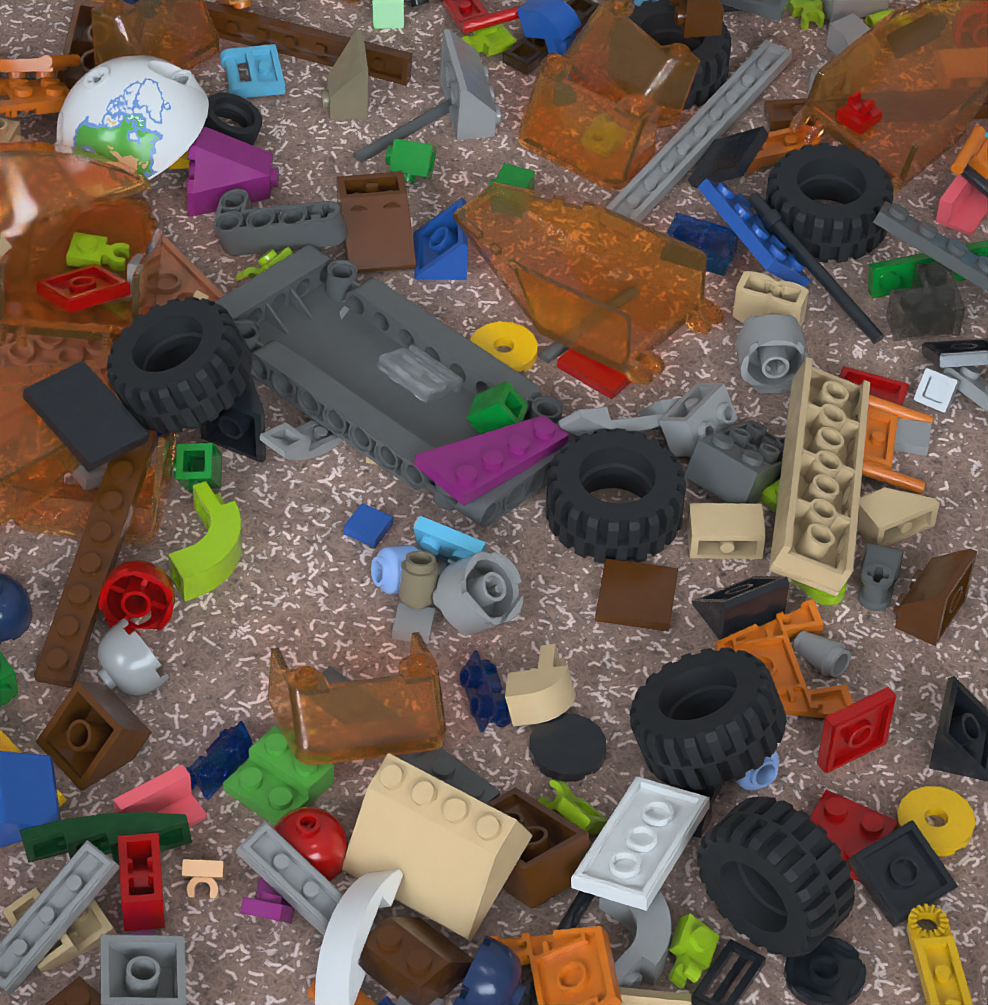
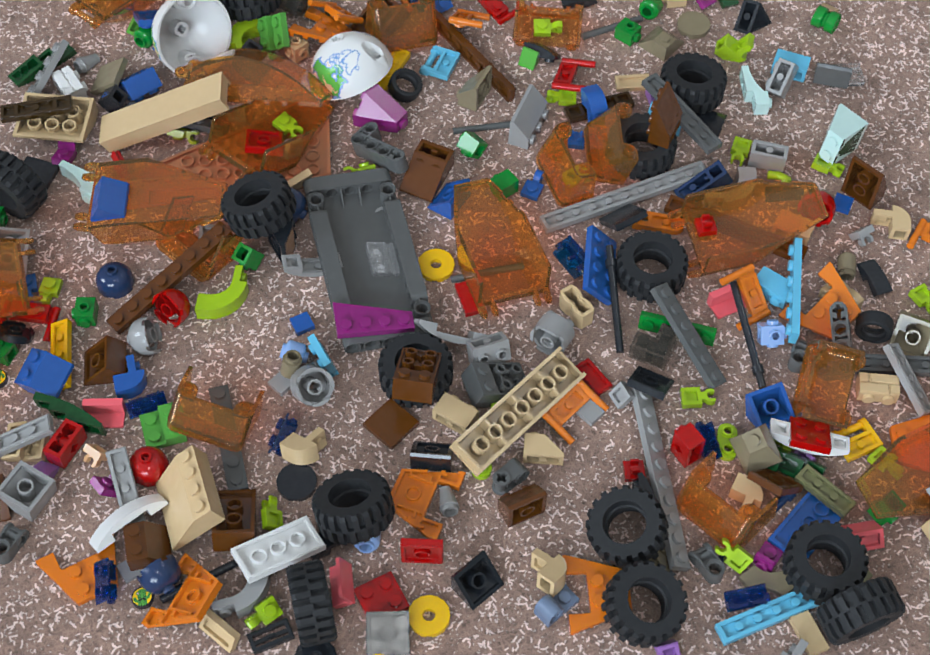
camera: 35 degrees right, 10 degrees up
(85, 415) = (199, 209): black tile -> none
(166, 739) = (131, 383): none -> blue brick
(496, 408) = (396, 297): green brick -> none
(552, 180) = (533, 188): none -> blue plate
(646, 488) = (416, 375): none -> reddish brown slope
(805, 53) = (709, 178): none -> dark blue slope

